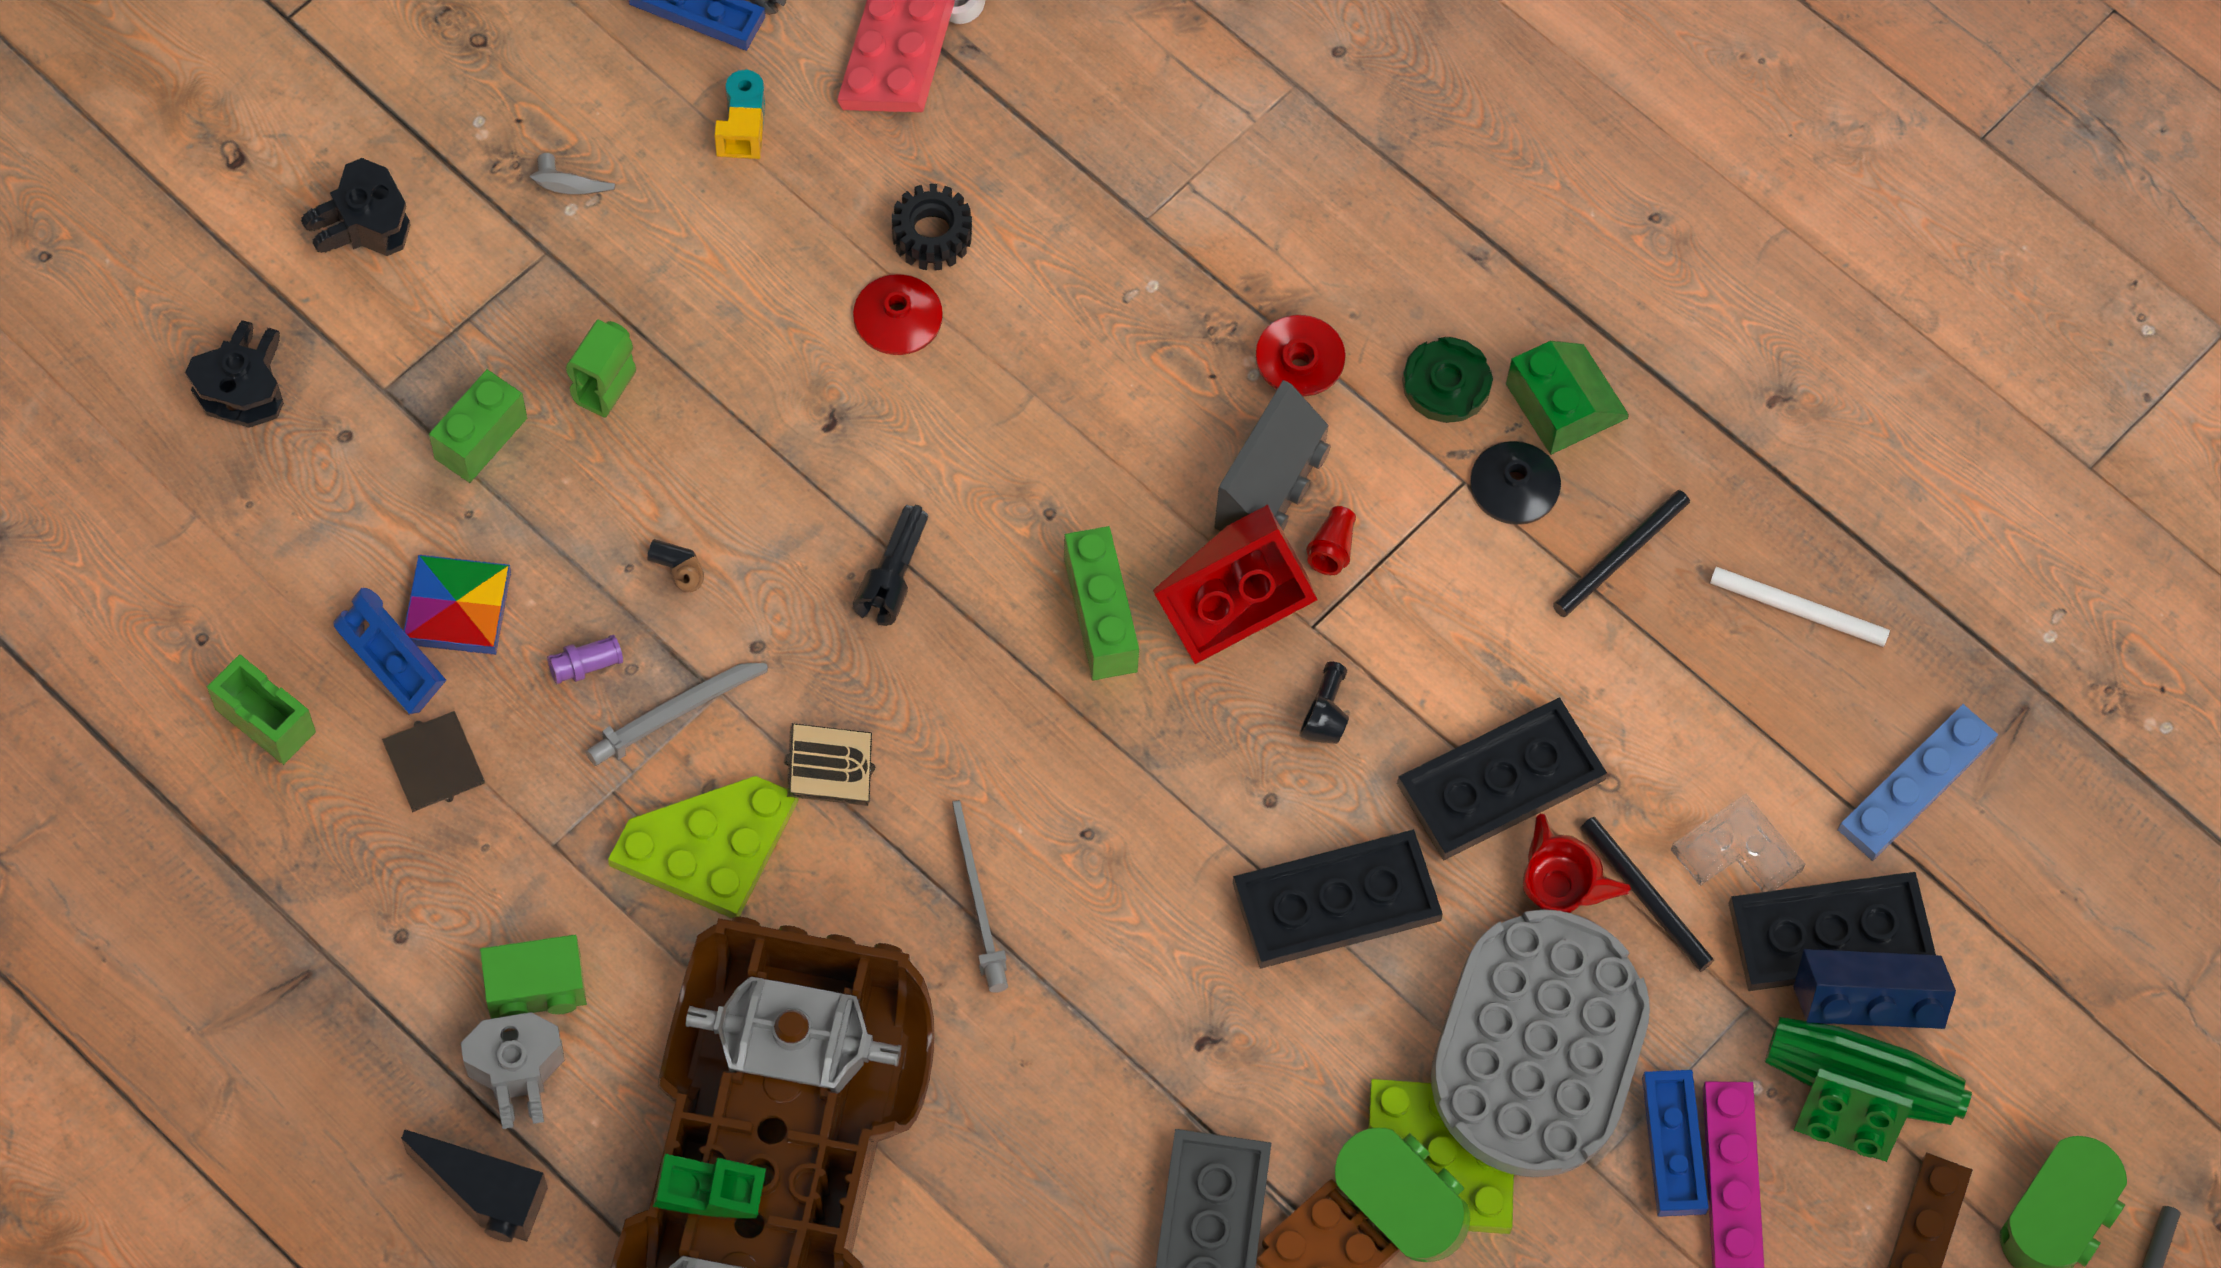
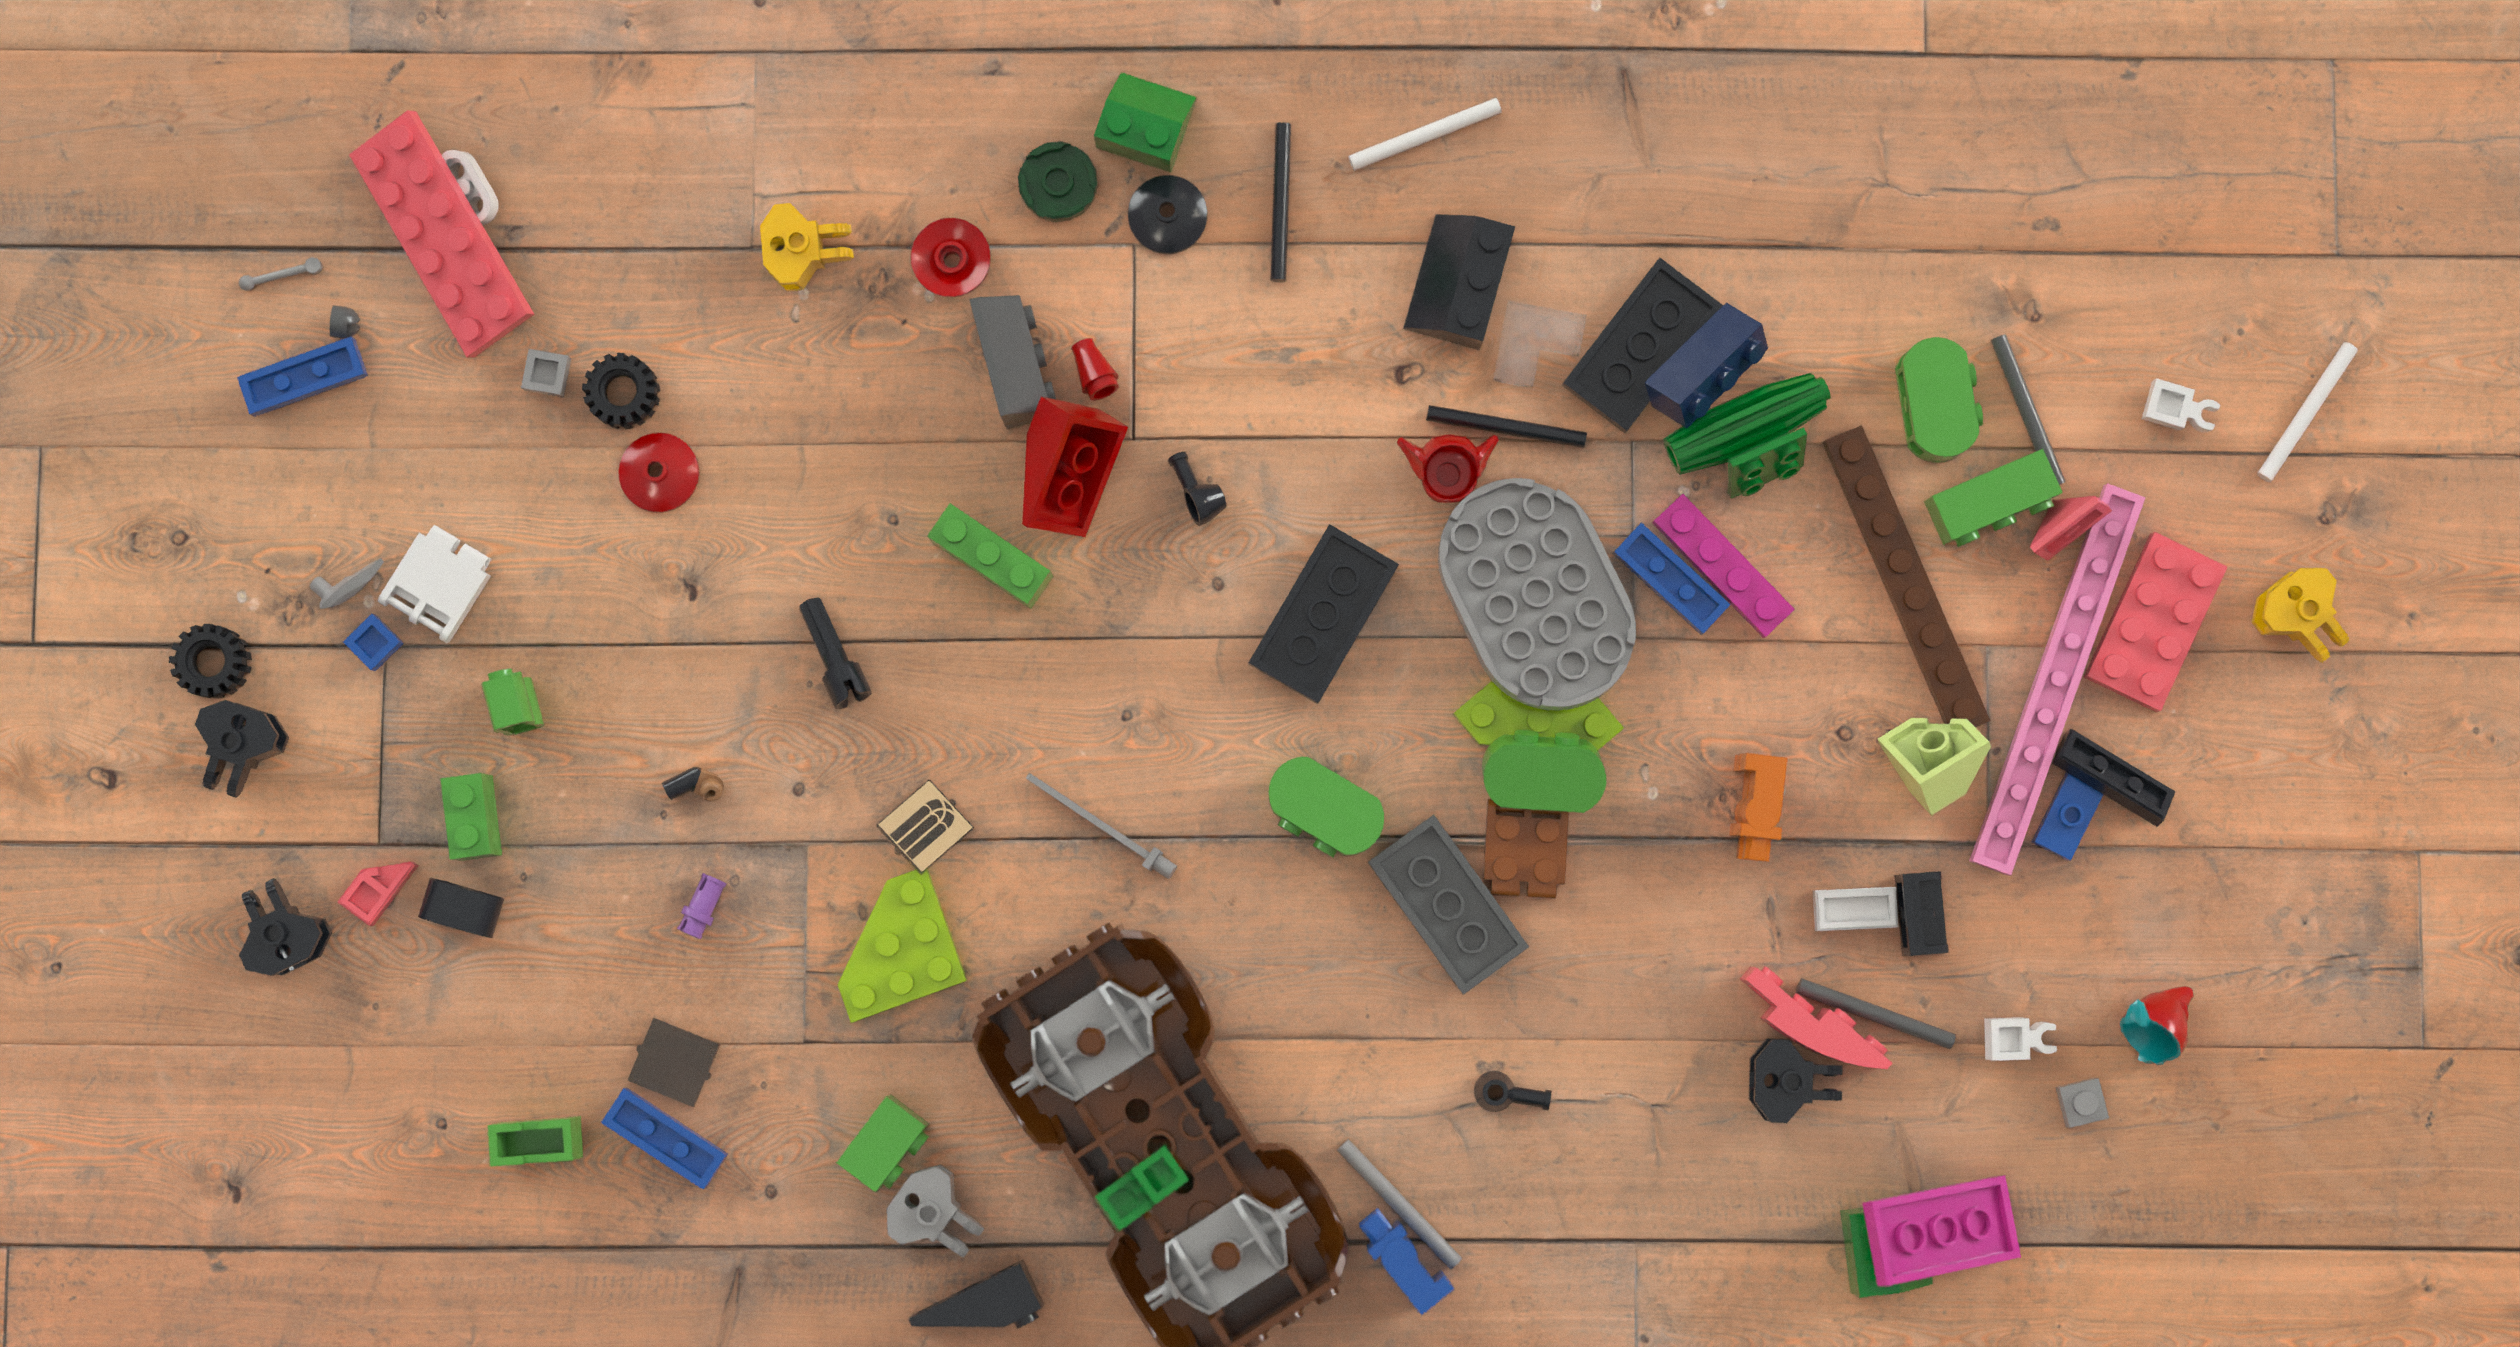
camera: 40 degrees left, 20 degrees up
(345, 417) = (375, 890): none -> coral tile
(363, 809) = (664, 1138): none -> blue plate
(389, 651) = (572, 1022): blue plate -> none
(396, 487) = (461, 907): none -> black beam
(403, 119) = (186, 661): none -> black tyre
(457, 604) = (581, 946): tile -> none
(542, 236) = (373, 642): none -> blue plate
(616, 742) = (778, 931): light grey sword -> none
(642, 236) = (437, 581): none -> white plate
(743, 131) = (418, 426): yellow leg -> none
(886, 163) = (546, 373): none -> light grey plate
(1182, 239) = (803, 246): none -> yellow hinge
(1182, 1052) = (1325, 807): none -> bright green brick
(1501, 778) = (1349, 434): black plate -> none
(1721, 742) = (1459, 279): none -> black slope
(1917, 782) = (1604, 189): medium blue plate -> none

